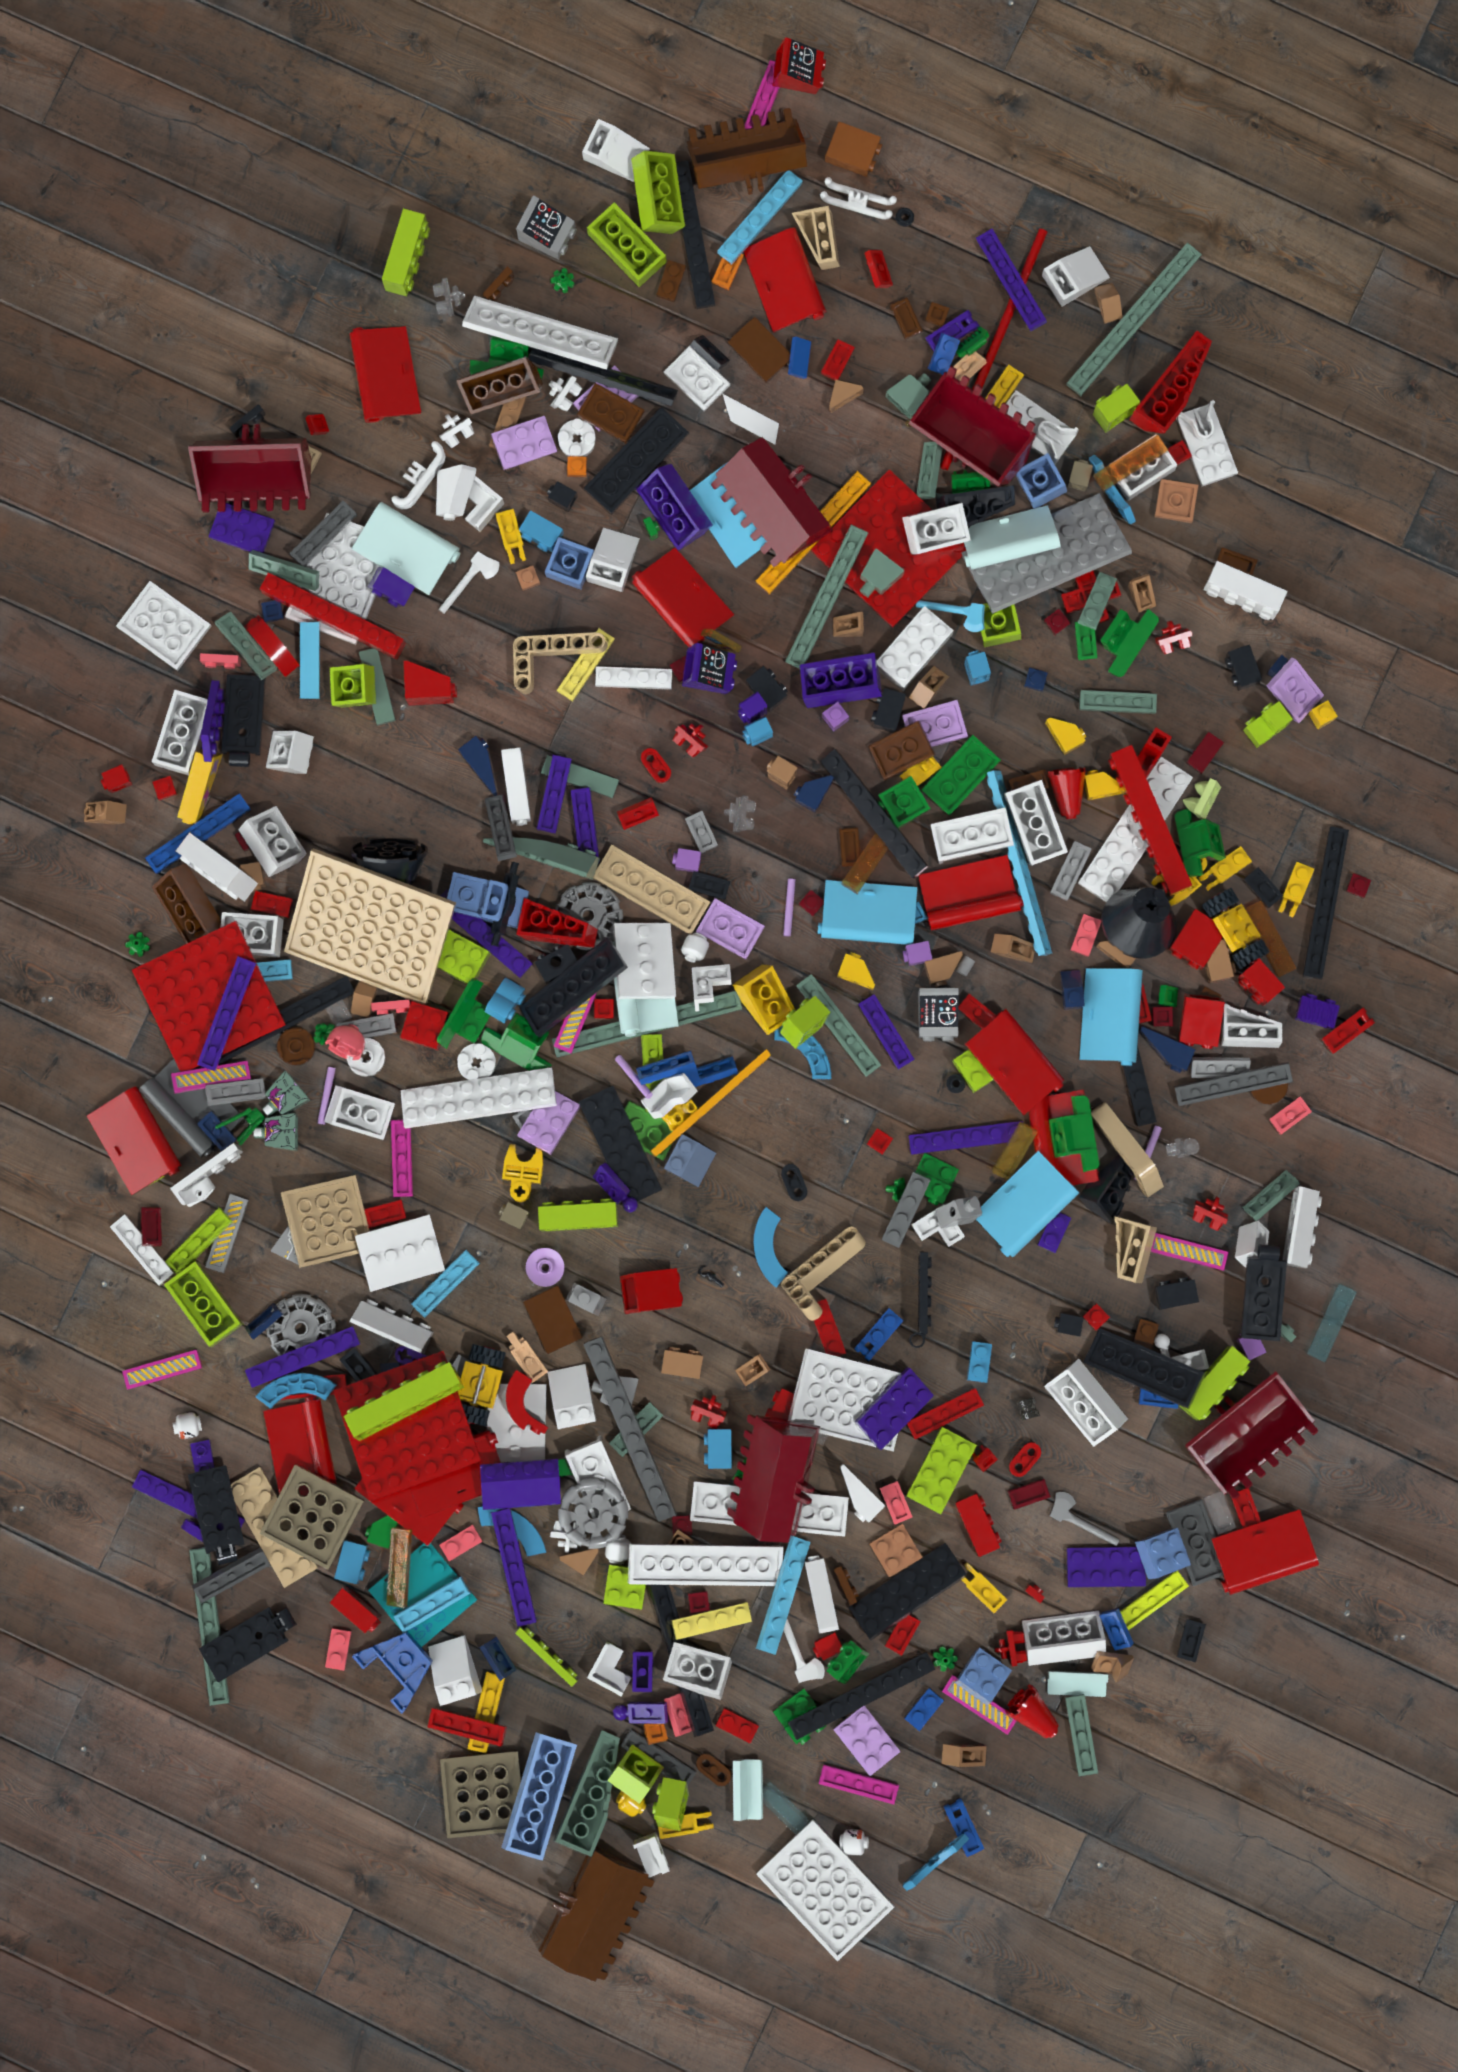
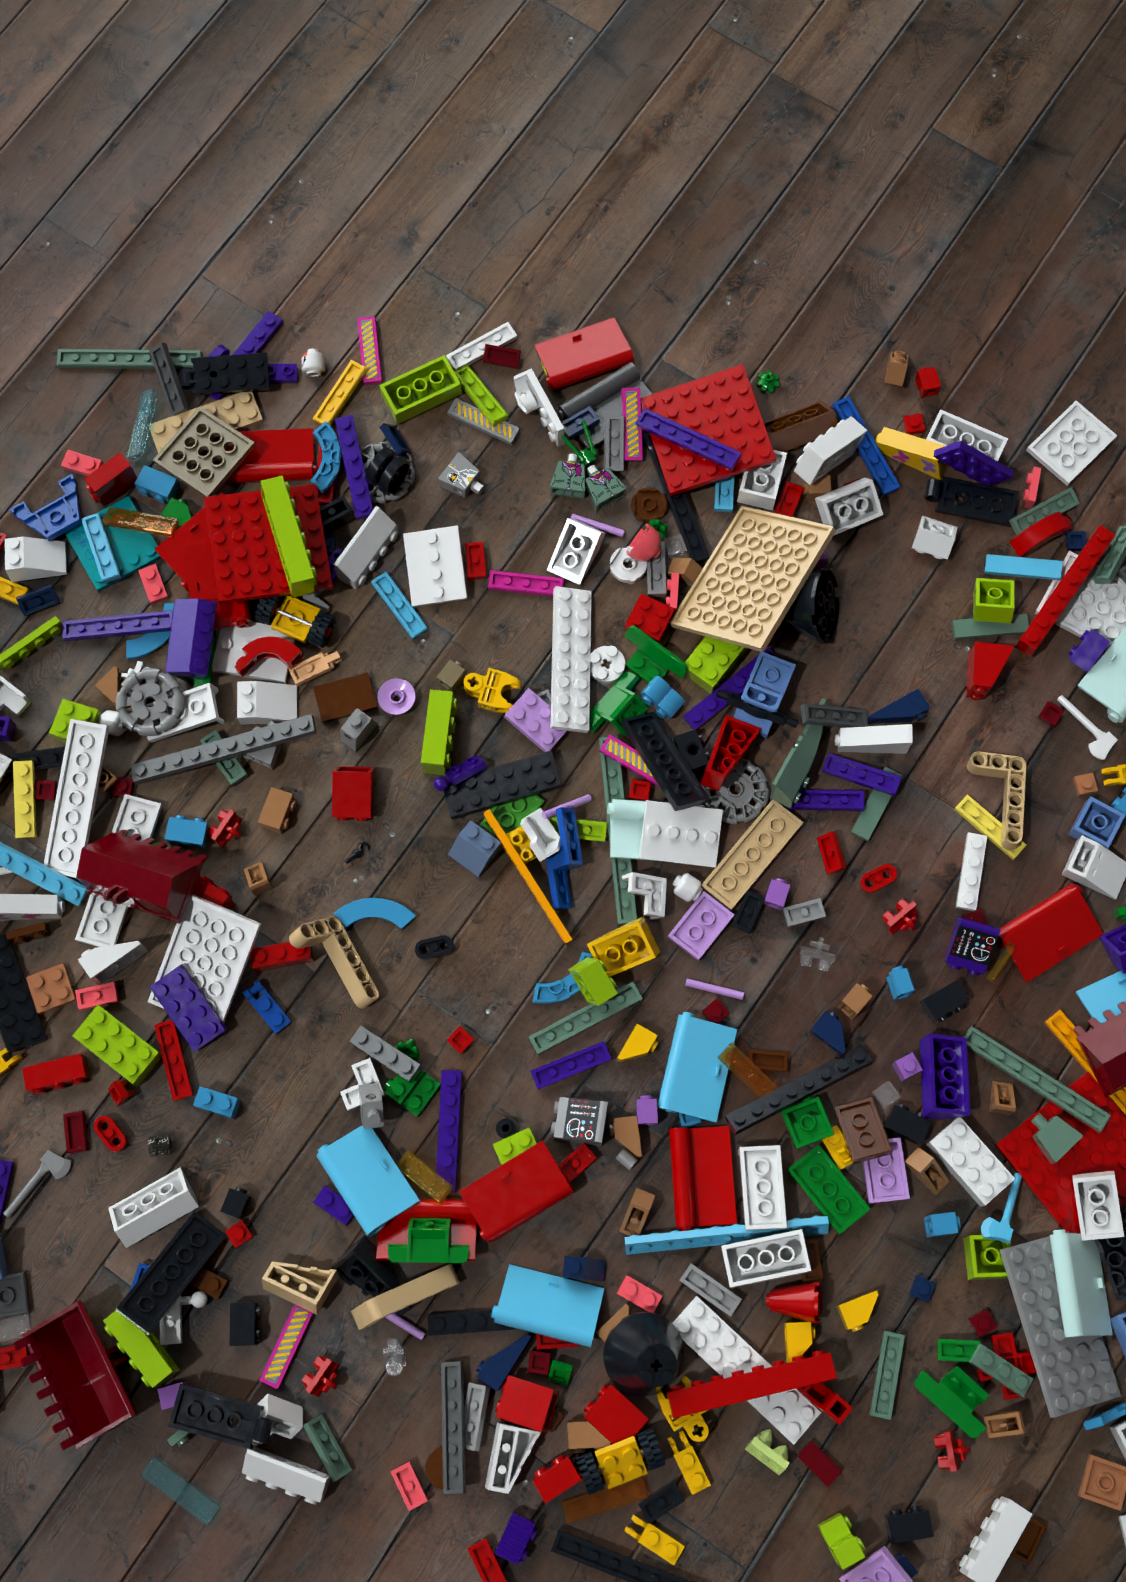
camera: 95 degrees right, 10 degrees down
(218, 1390) = (340, 393): none -> yellow tile
(241, 1647) = (102, 378): black hinge -> none
(284, 1593) = (142, 424): none -> clear light blue tile
(306, 1320) = (387, 471): none -> black wheel
(325, 1220) = (478, 503): tan plate -> none
(461, 618) = (1050, 714): none -> dark red plate
(752, 708) = (925, 981): dark purple brick -> none
(864, 733) = (886, 1094): none -> clear plate
(924, 1299) = (290, 1056): black hinge -> none
(1198, 841) = (721, 1436): green plate -> none

